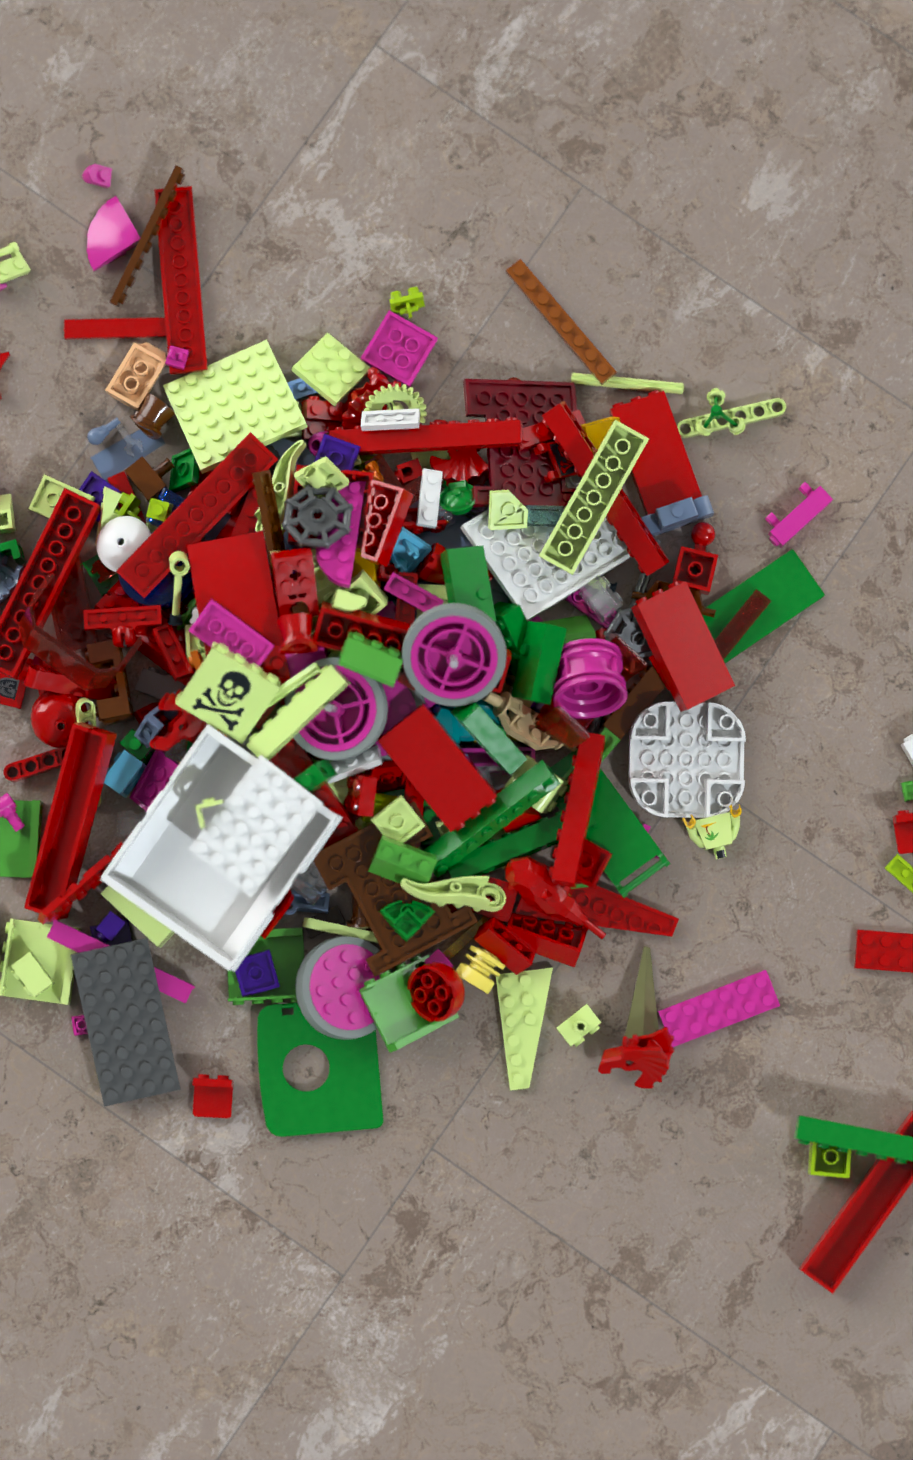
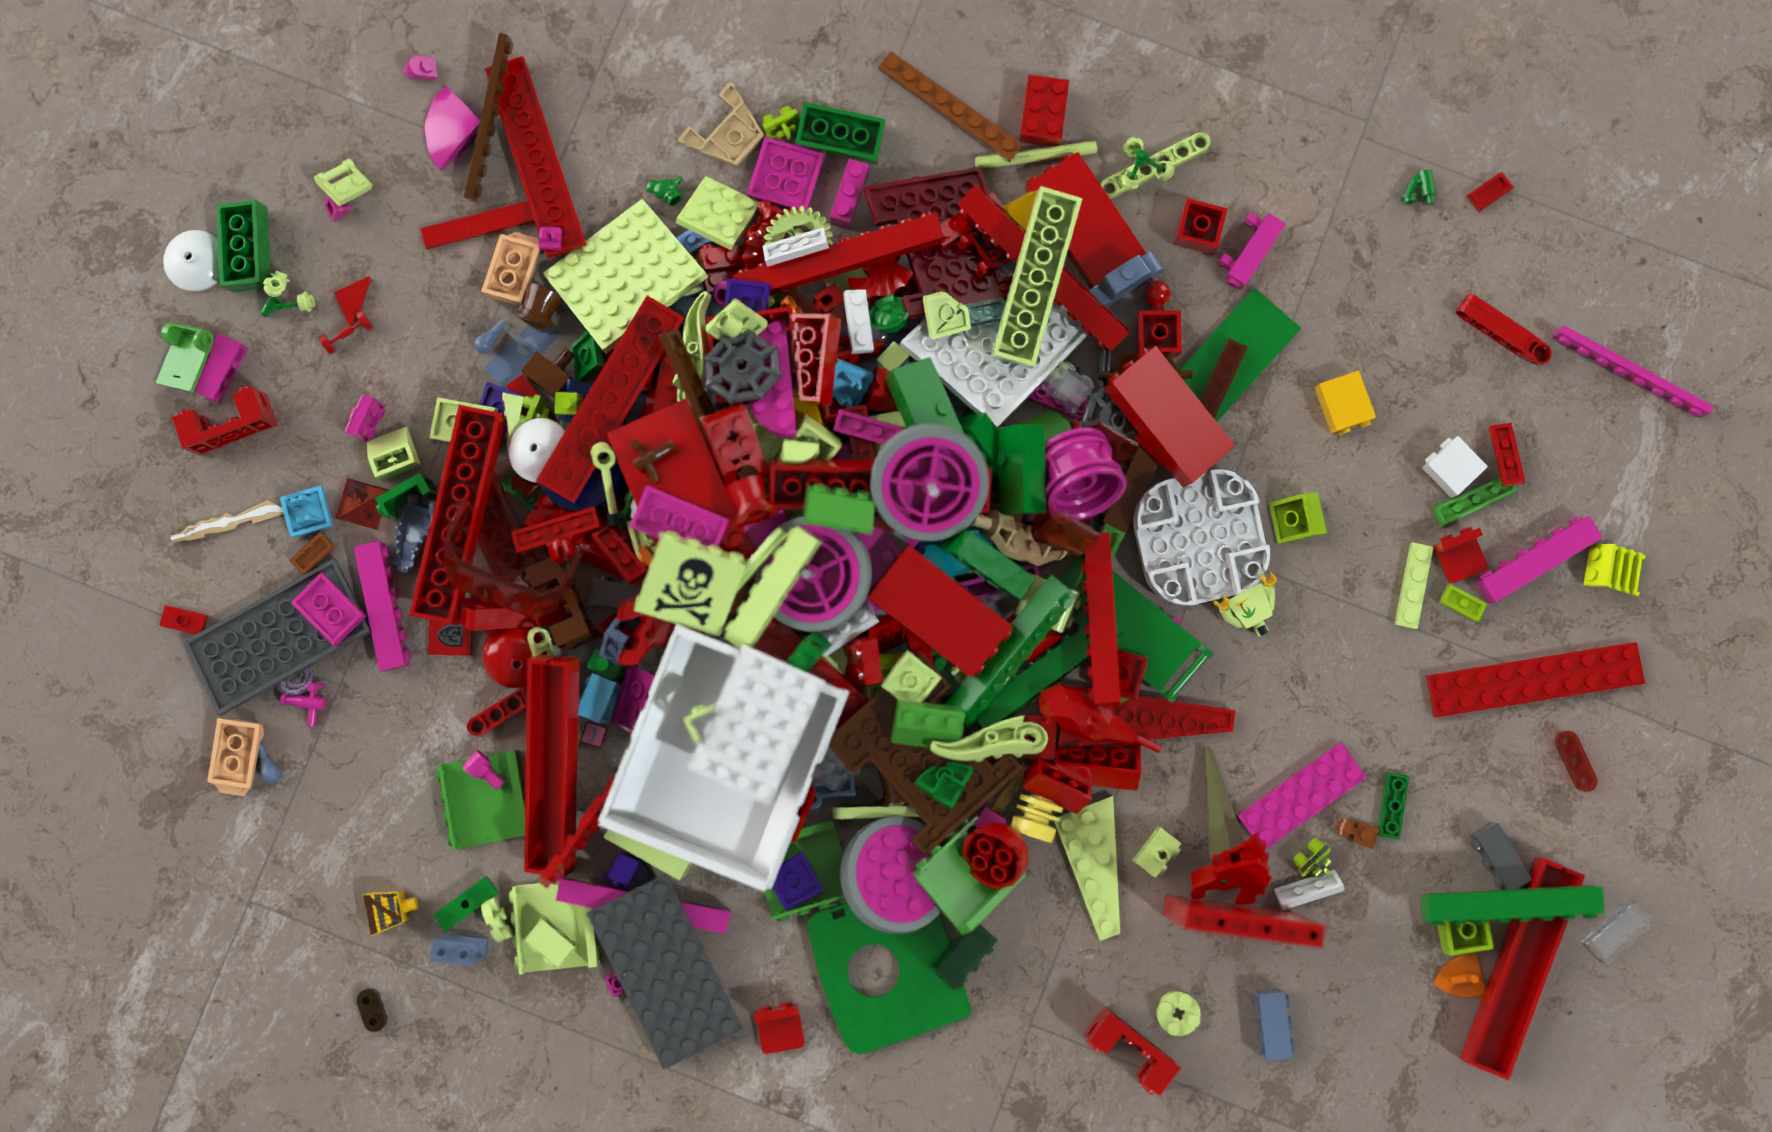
camera: 15 degrees left, 0 degrees up
(111, 804) = (594, 734): none -> bright pink tile
(220, 575) = (647, 459): none -> reddish brown piece
(289, 337) = (666, 190): none -> green animal
(361, 303) = (733, 137): none -> tan wing
(387, 1072) = (963, 956): none -> clear green brick
(451, 379) = (849, 194): none -> dark pink brick
(452, 537) = (893, 357): none -> yellowish green brick
(457, 323) = (841, 133): none -> green brick
(530, 1212) = (1159, 1067): none -> red plate
(553, 1163) = (1167, 1007): none -> yellowish green plate
(632, 1096) = (1243, 921): none -> red brick
(643, 346) = (1044, 111): none -> red brick
(643, 1199) = (1274, 1024): none -> sand blue brick
(703, 1090) = (1308, 890): none -> white plate
(715, 1068) = (1320, 852): none -> lime hips
(756, 483) = (1200, 226): none -> red brick
(764, 1054) = (1361, 834): none -> dark orange plate
(778, 763) = (1297, 517): none -> lime slope
(791, 1047) = (1394, 791): none -> green tile
(819, 1199) = (1461, 976): none -> orange shield
(846, 671) = (1345, 403): none -> yellow brick
(866, 848) = (1413, 586): none -> yellowish green plate
(878, 1102) = (1499, 857): none -> dark grey brick

